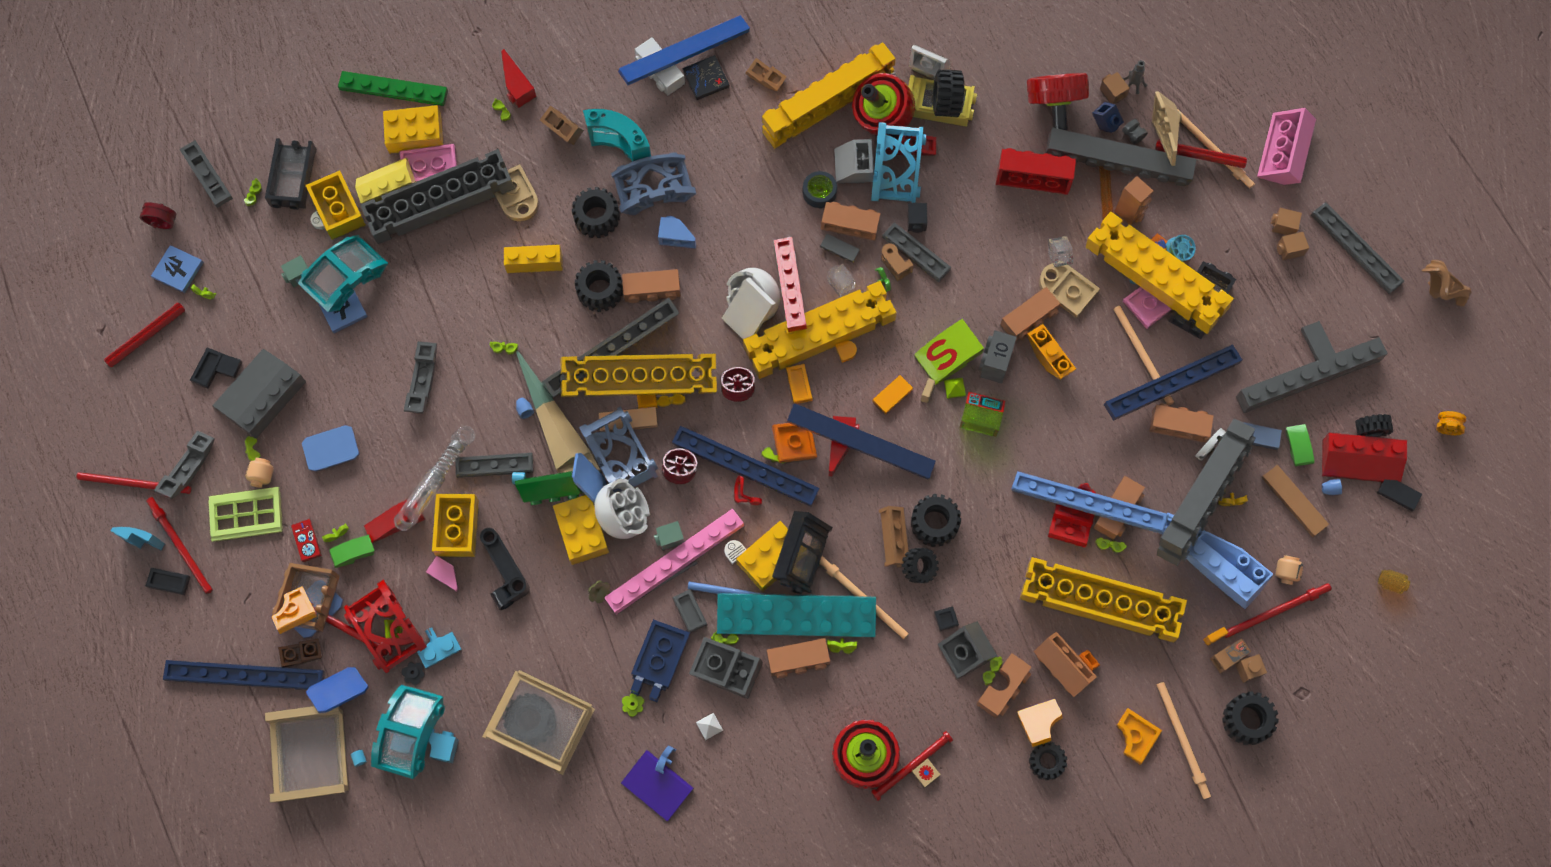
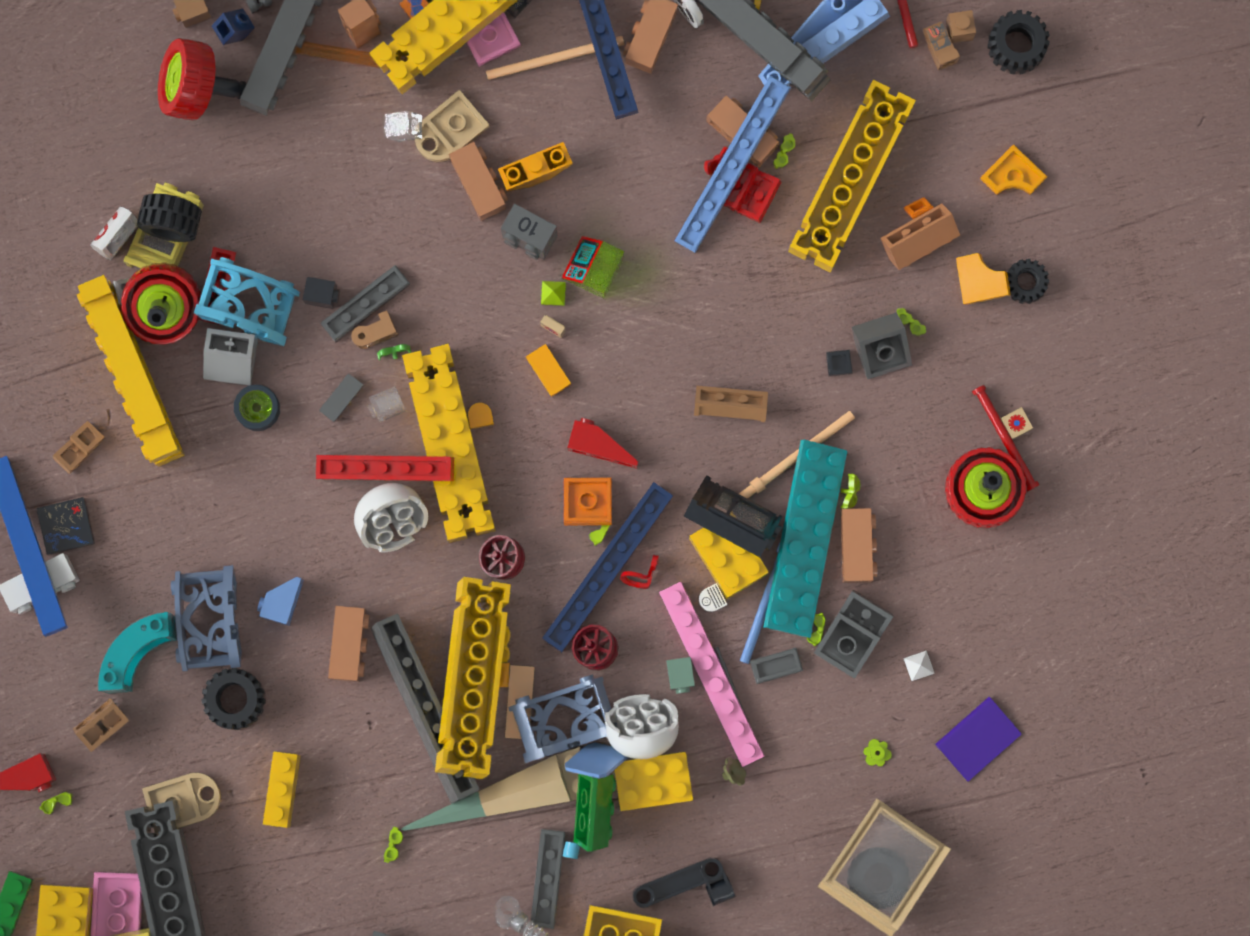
camera: 80 degrees left, 10 degrees up
(524, 408) = (480, 830): medium blue hose -> none
(595, 272) = (315, 710): black tyre -> none
(658, 658) = (828, 712): dark blue tile -> none
(663, 758) = (951, 726): medium blue piece -> none
(748, 309) = (411, 526): white tile -> none
(799, 384) = (512, 482): light orange tile -> none
(850, 220) = (308, 376): nougat brick -> none
(861, 441) = (606, 420): dark blue tile -> none
(929, 565) = (769, 389): black tyre -> none
(940, 505) = (724, 330): black tyre -> none
(949, 351) = (508, 290): lime slope -> none
(996, 701) = (920, 295): nougat arch -> none
(1035, 171) = (291, 132): red brick -> none
(1198, 778) = (1071, 116): light nougat bar -> none
(1215, 636) = (915, 57): light orange tile -> none

